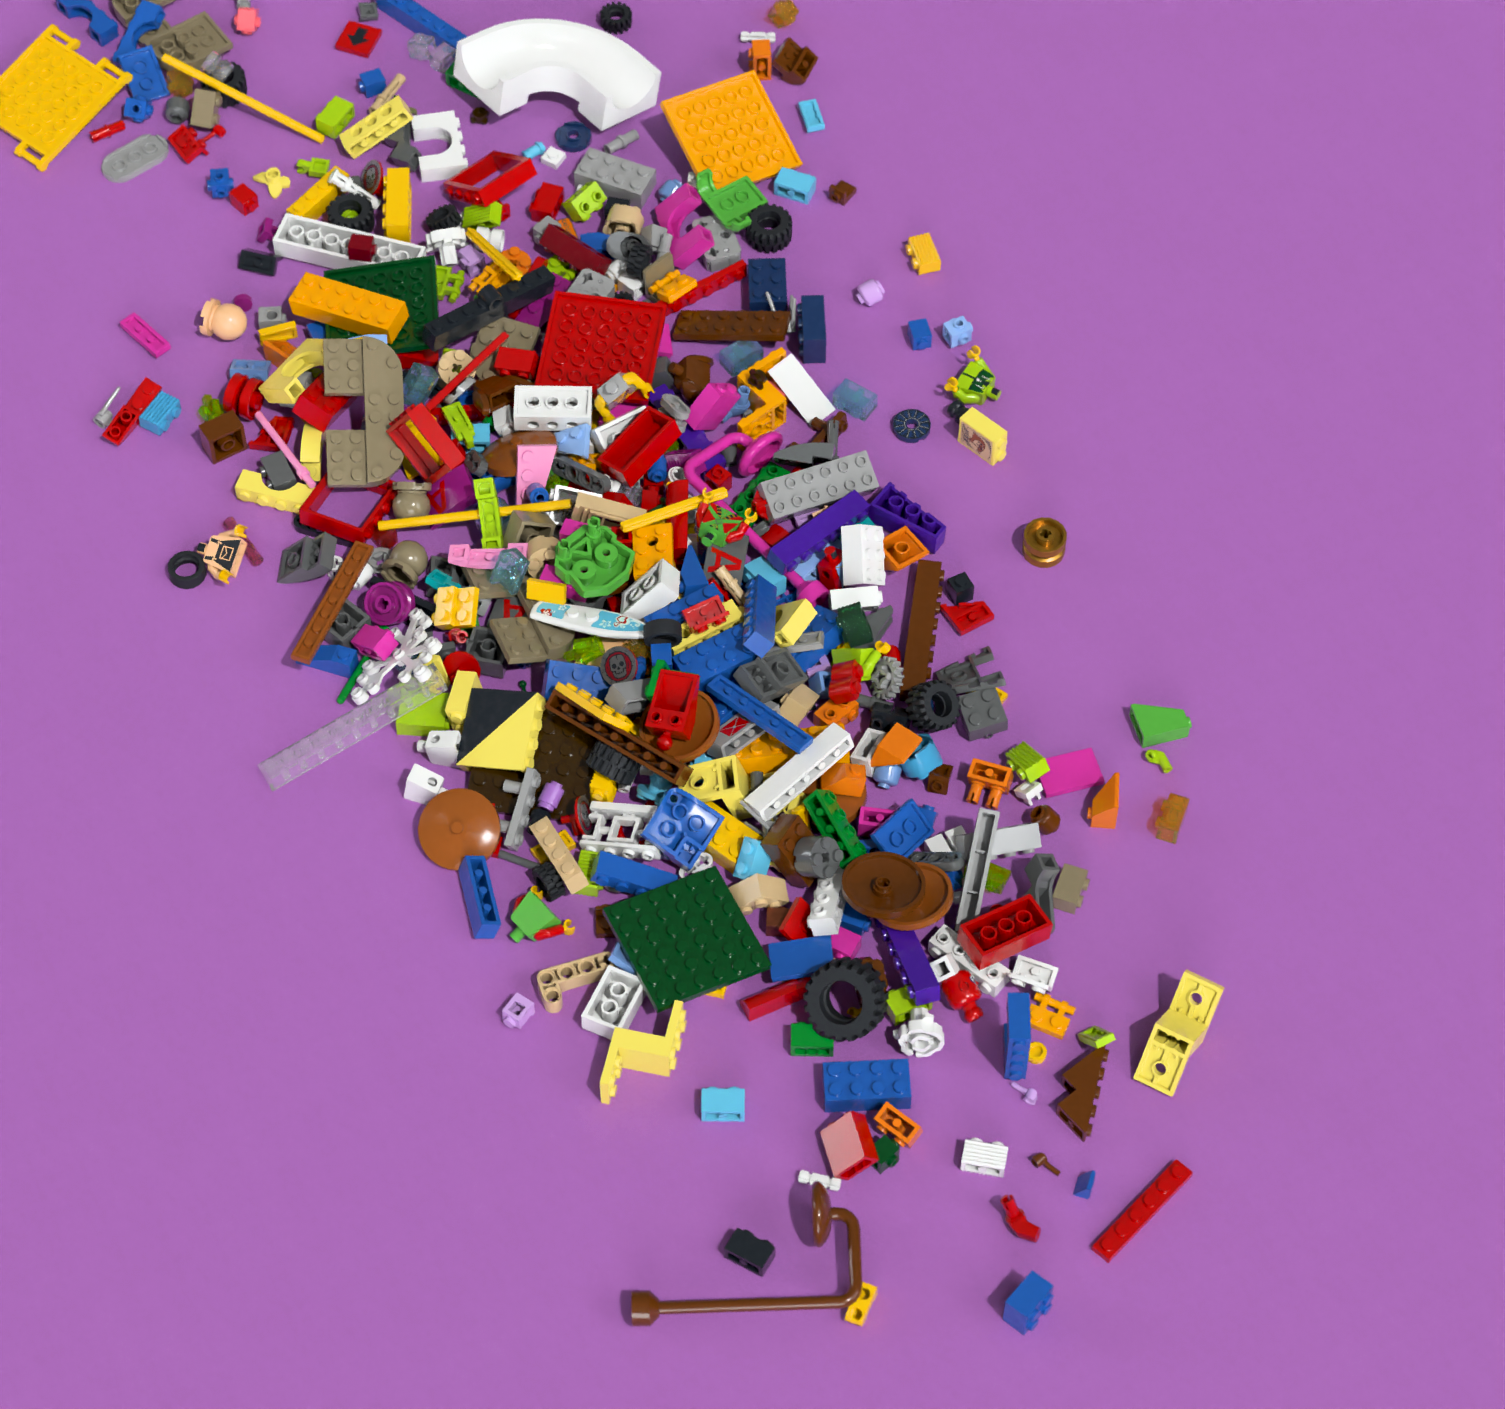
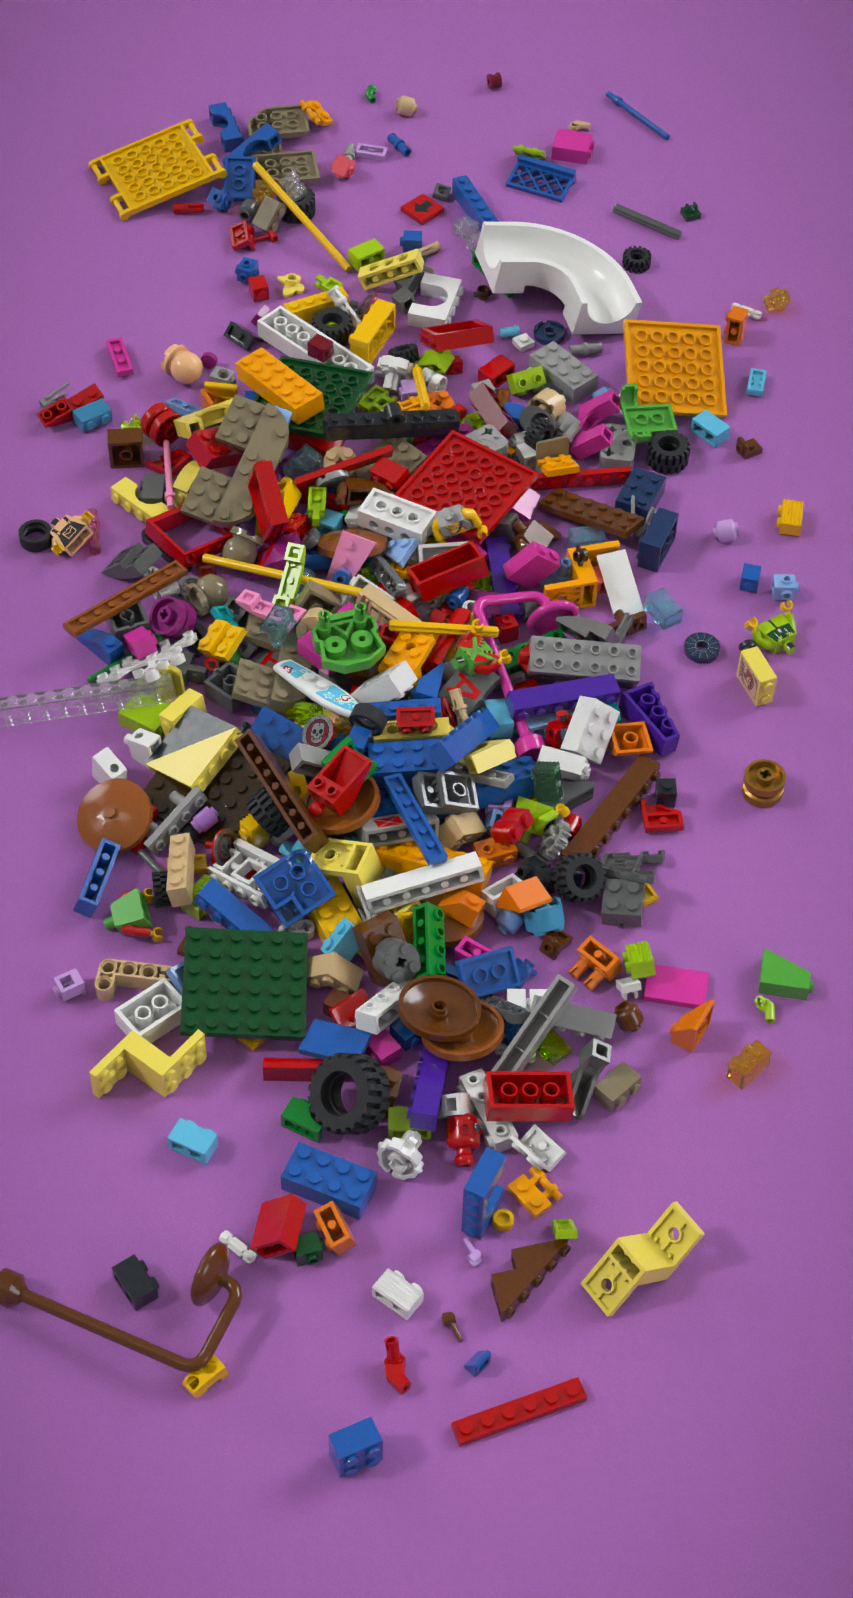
camera: 25 degrees right, 5 degrees down
(134, 158) = (197, 234): light grey tile -> none
(460, 661) = (202, 685): red shield -> none
(546, 591) = (298, 652): yellow tile -> none
(594, 705) = (274, 755): yellow plate -> none
(676, 409) = (496, 558): light grey brick -> none
(794, 62) = (764, 337): reddish brown brick -> none

